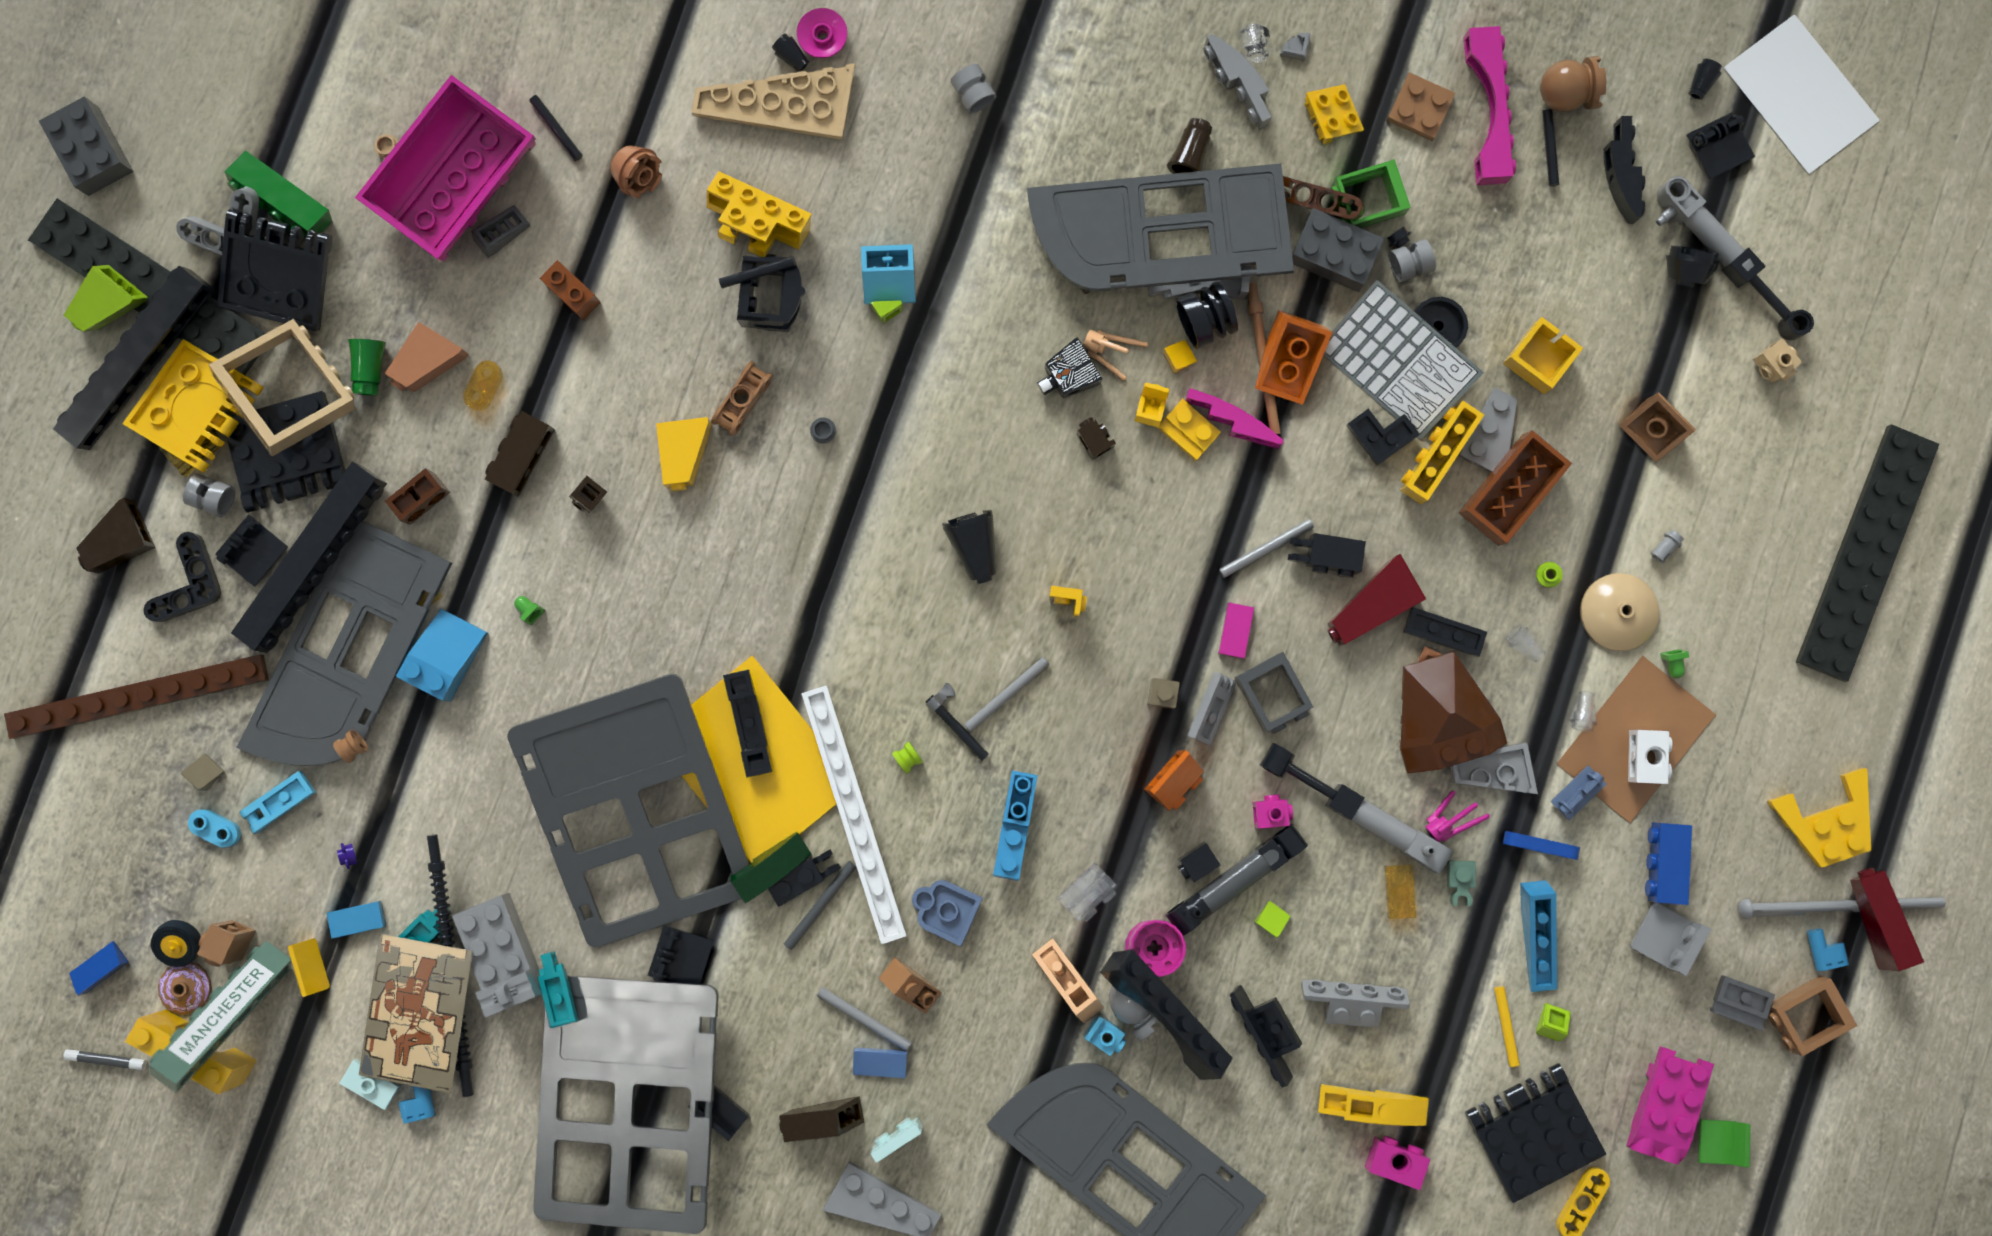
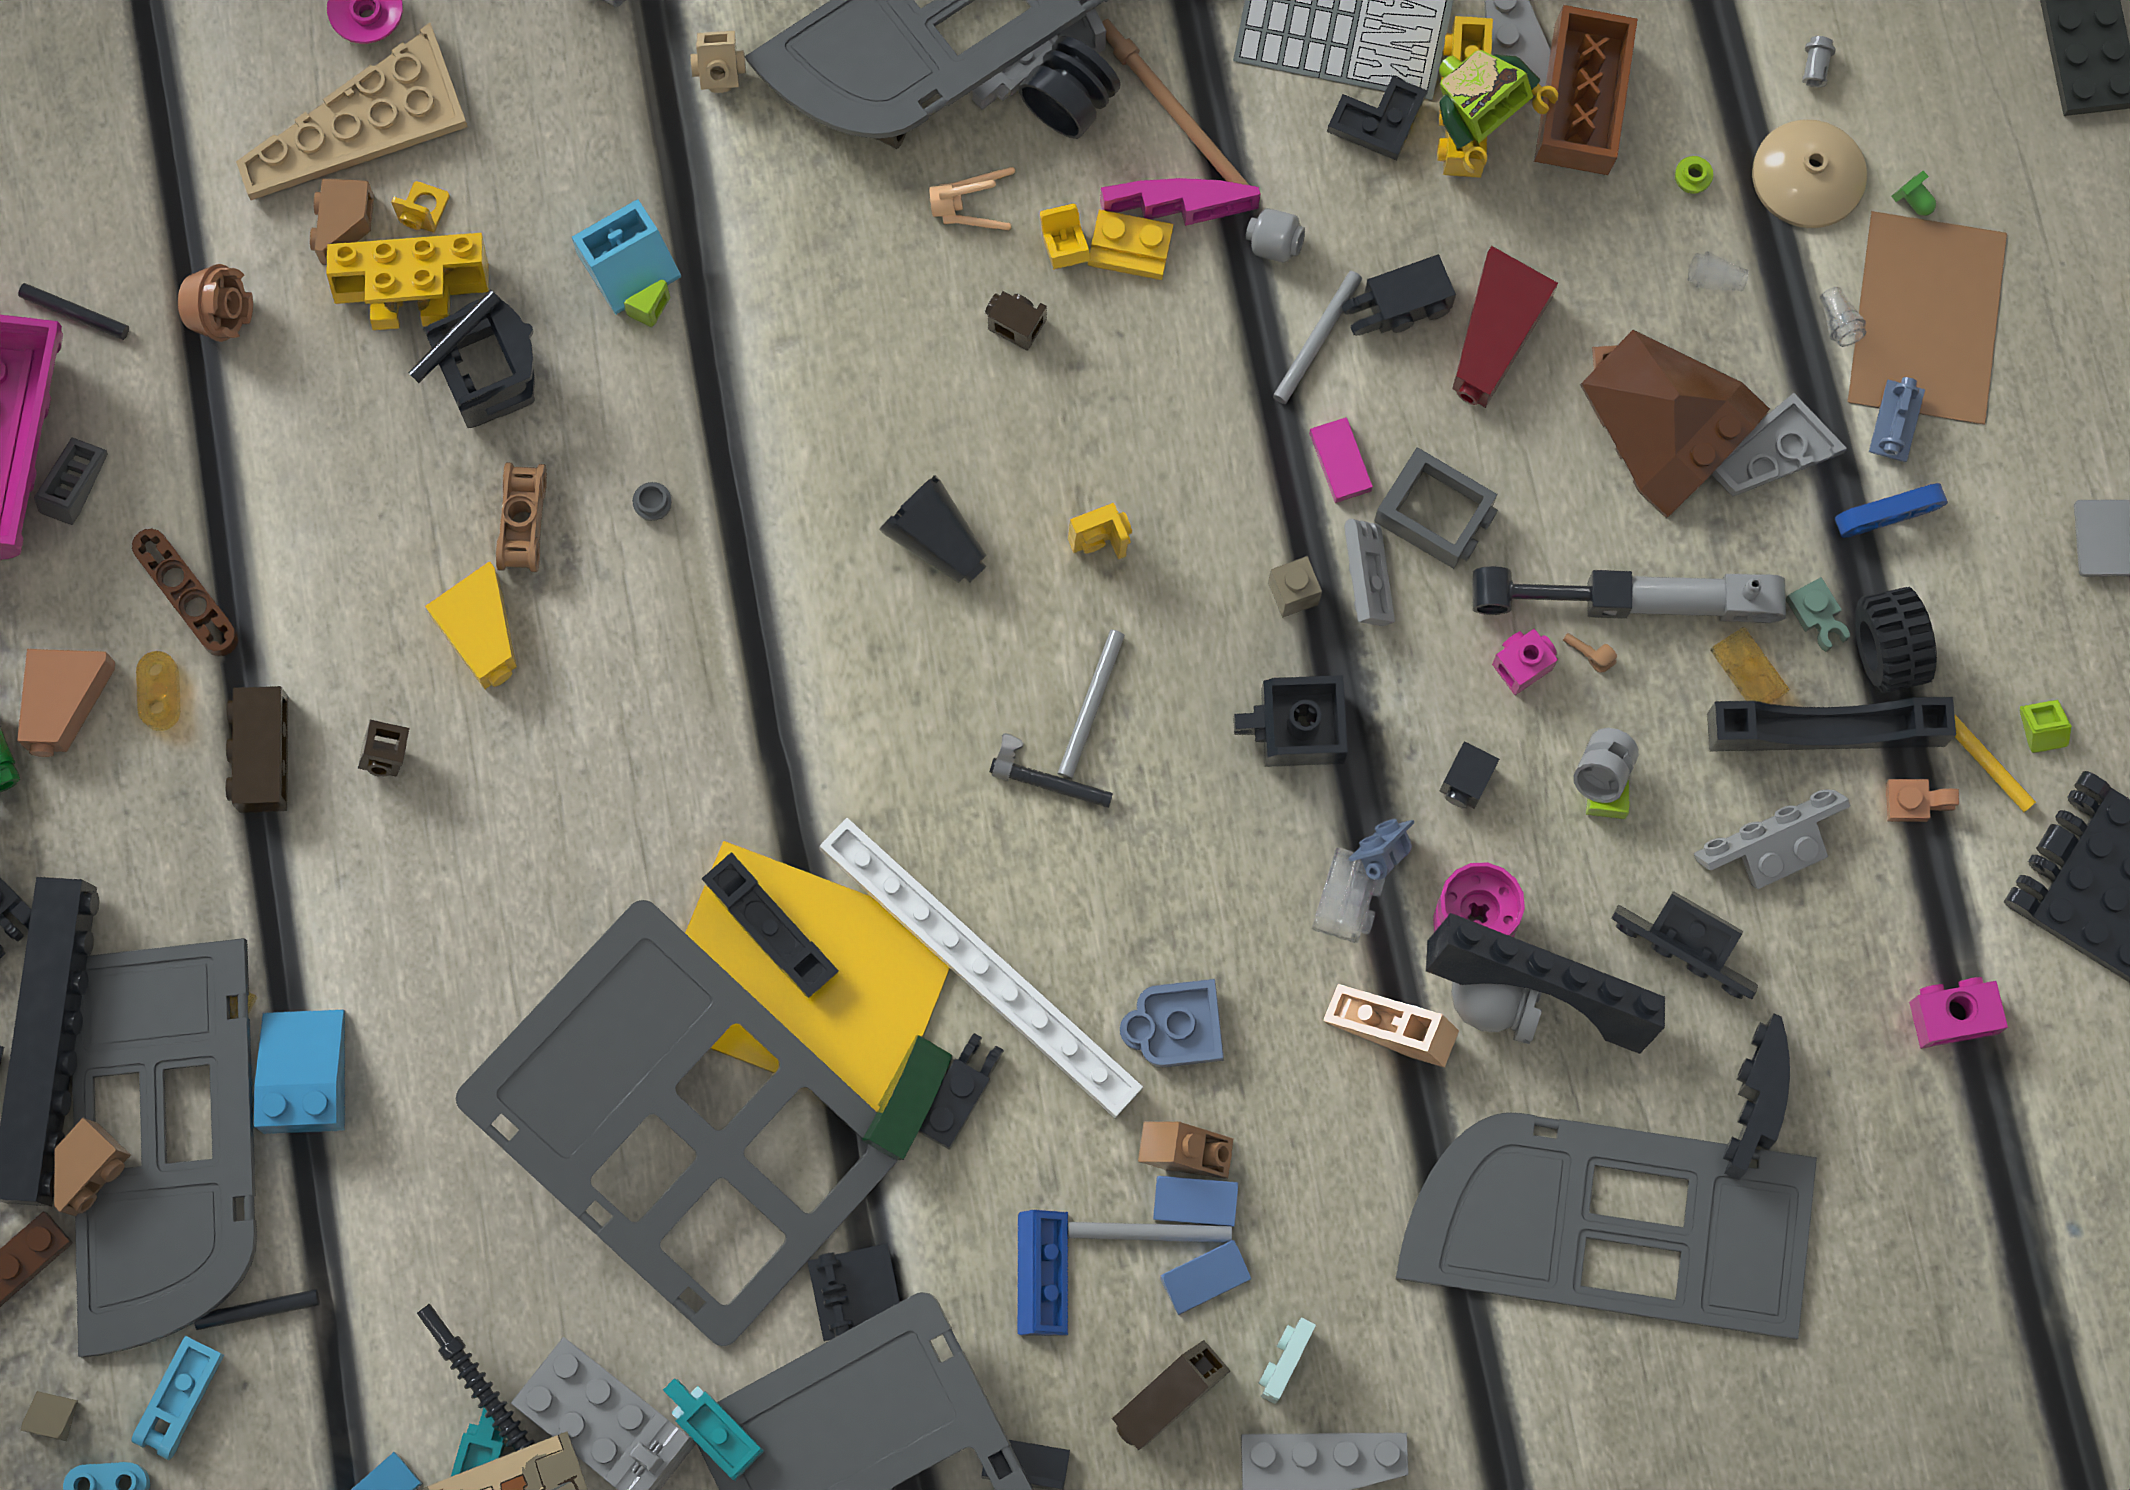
camera: 30 degrees left, 10 degrees down
(293, 642) = (84, 1164): none -> medium nougat slope
(347, 855) = (316, 1413): dark purple plate -> none
(349, 777) = (259, 1309): none -> black bar
(350, 746) = (243, 1252): medium nougat wheel -> none
(417, 496) = (151, 877): reddish brown brick -> none
(526, 335) = (184, 592): none -> reddish brown beam
(529, 610) = (387, 947): bright green piece -> none
(570, 290) = (210, 502): dark orange brick -> none
(739, 156) = (342, 212): none -> medium nougat slope
(779, 176) = (417, 216): none -> yellow bracket
(790, 52) = (336, 54): black cone -> none
(790, 1007) = (1042, 1273): none -> blue slope
(820, 904) = (1003, 1116): dark grey bar -> none
(899, 1016) = (1195, 1201): none -> medium blue slope
(907, 757) = (1008, 854): lime wheel -> none
(1009, 181) = (717, 61): none -> tan brick
(1015, 825) = (1202, 862): dark azure slope -> none
(1070, 371) = (935, 252): black torso -> none
(1098, 1028) = (1470, 1076): medium azure brick -> none
(1103, 778) = (1278, 726): none -> black hinge
(1122, 878) = (1384, 848): none -> sand blue hinge
(1174, 780) = (1376, 683): orange slope -> none
(1179, 356) = (1063, 161): yellow slope -> none
(1262, 1138) = (1766, 1084): none -> black slope
(1265, 858) = (1533, 765): piece -> none
(1277, 473) = (1275, 235): none -> light grey head
(1280, 903) = (1606, 765): none -> light grey wheel
(1292, 357) = (1208, 82): orange slope -> none
(1316, 836) = (1600, 660): none -> medium nougat hand
(1373, 1107) = (1882, 957): yellow slope -> none
(1427, 954) = (1892, 724): none -> black arch
(1440, 828) = (1752, 557): dark pink plant -> none
(1445, 632) = (1607, 314): black plate -> none
(1449, 462) = (1484, 95): none -> torso
(1449, 1022) = (1911, 800): none -> nougat plate
(1494, 928) = (1895, 639): none -> black tyre
(1540, 934) = (1960, 622): dark azure slope -> none
(1638, 766) = (1955, 346): white brick -> none
(1669, 863) = (2063, 442): blue brick -> none

